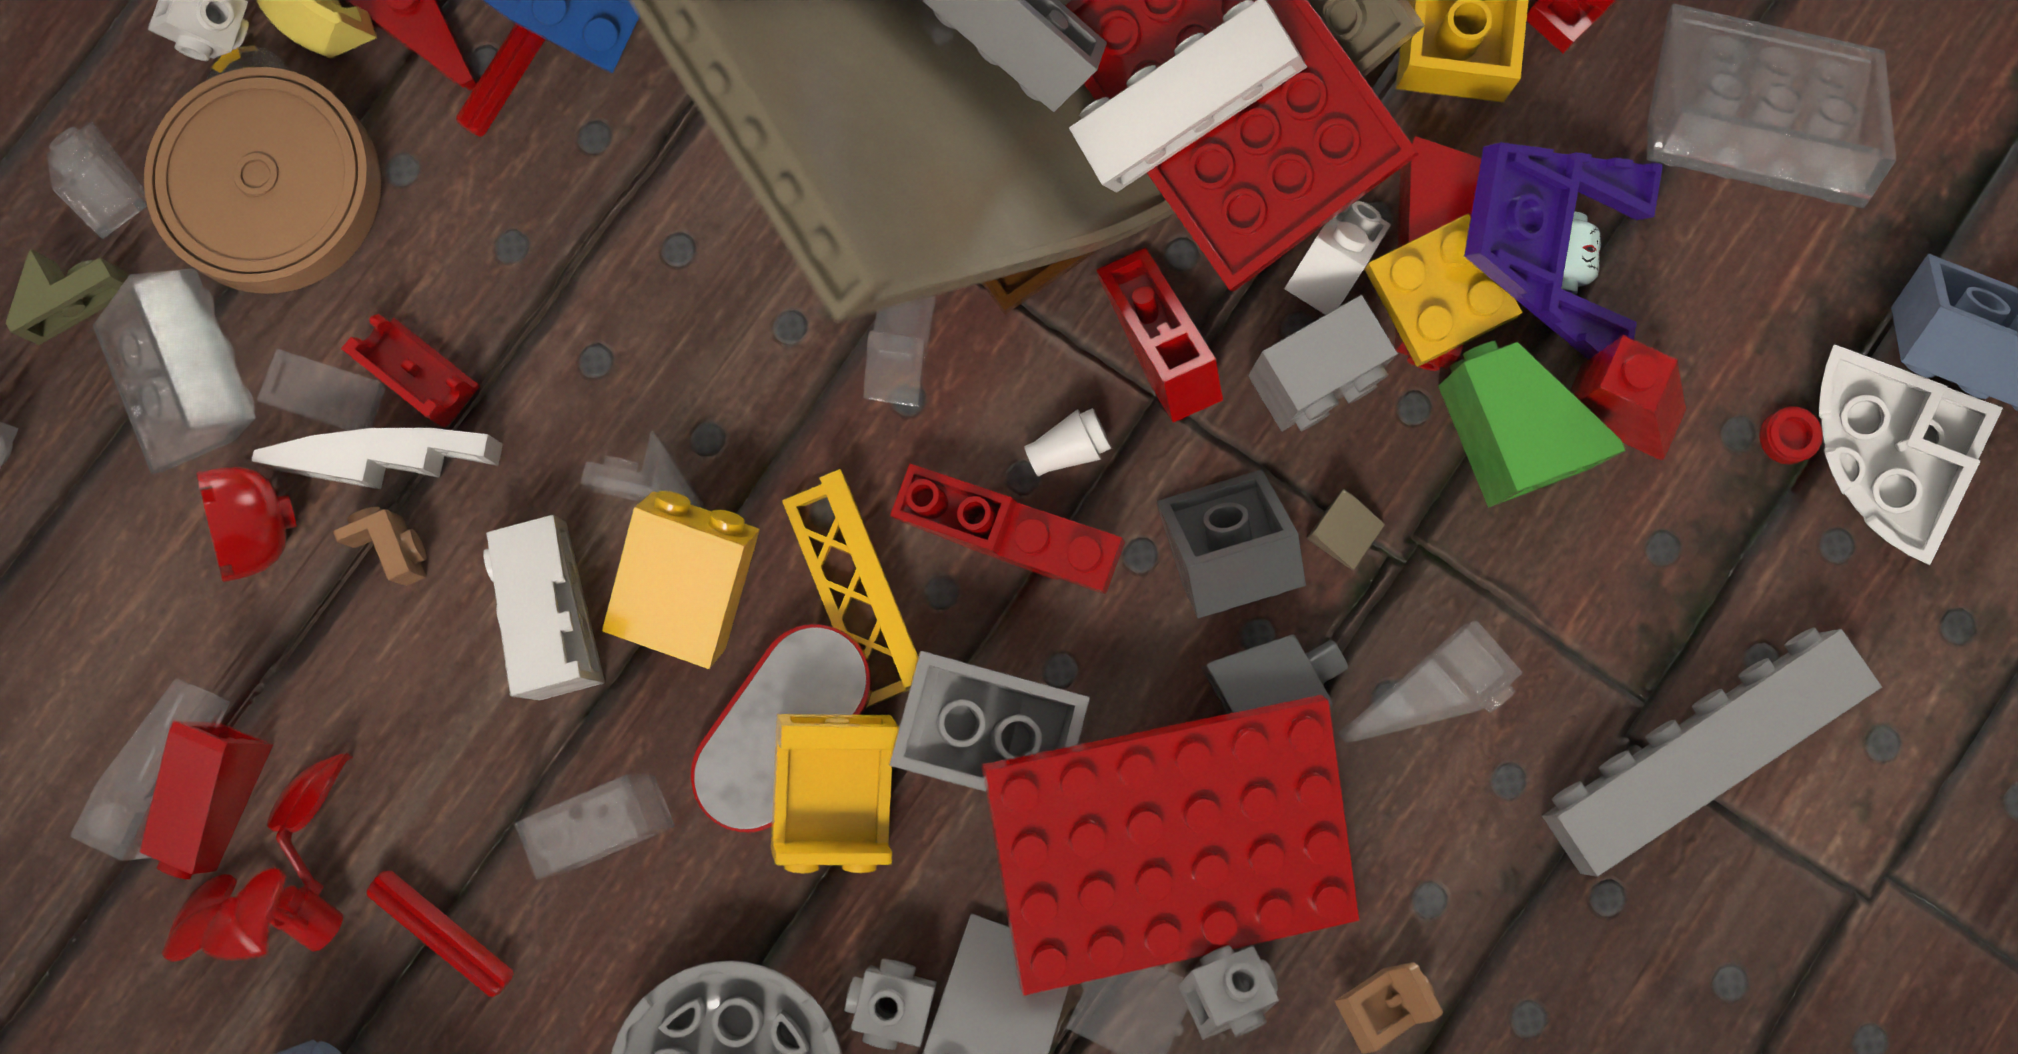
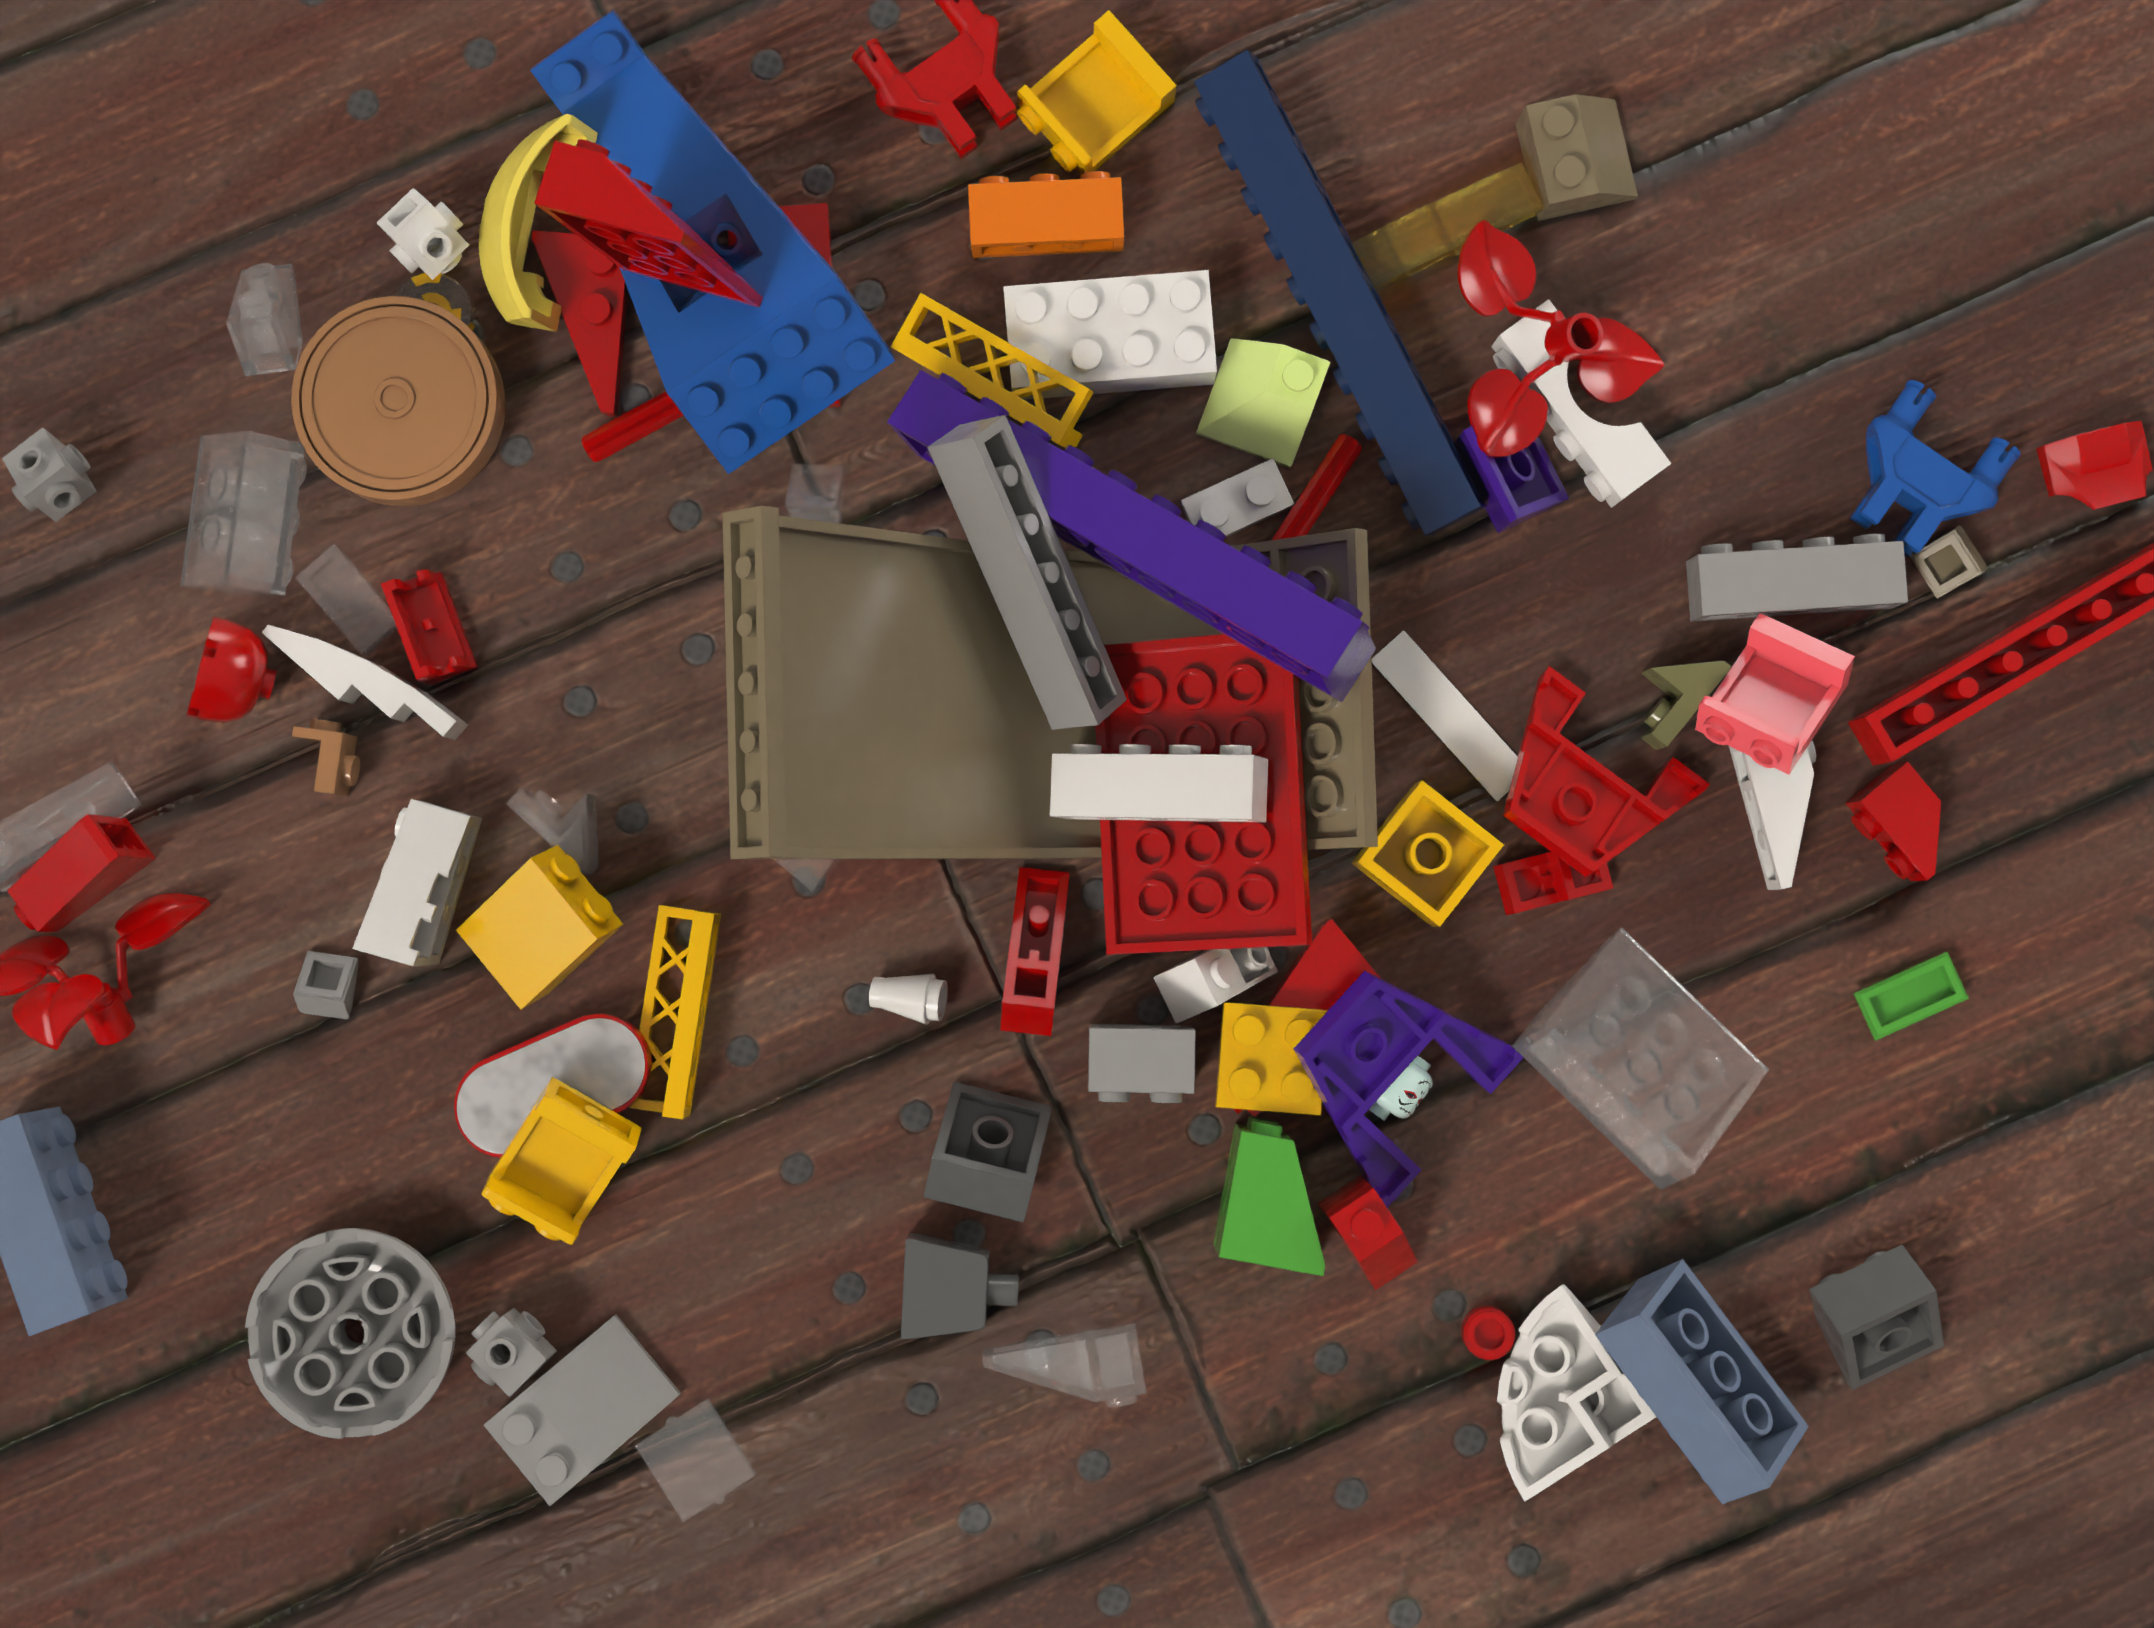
camera: 30 degrees right, 5 degrees up
(52, 303) = (179, 401): olive slope -> none
(440, 933) = (200, 1085): red axle -> none
(508, 765) = (326, 985): none -> light grey slope
(600, 825) = (359, 1084): clear window -> none
(978, 716) = (706, 1191): light grey slope -> none
(1007, 529) = (819, 1036): red slope -> none
(1171, 843) = (794, 1360): red plate -> none
(1230, 992) = (754, 1497): light grey brick -> none
(1346, 529) = (1087, 1195): dark tan slope -> none
(1388, 1005) = (887, 1579): medium nougat bracket -> none
(1710, 750) = (1259, 1538): light grey brick -> none

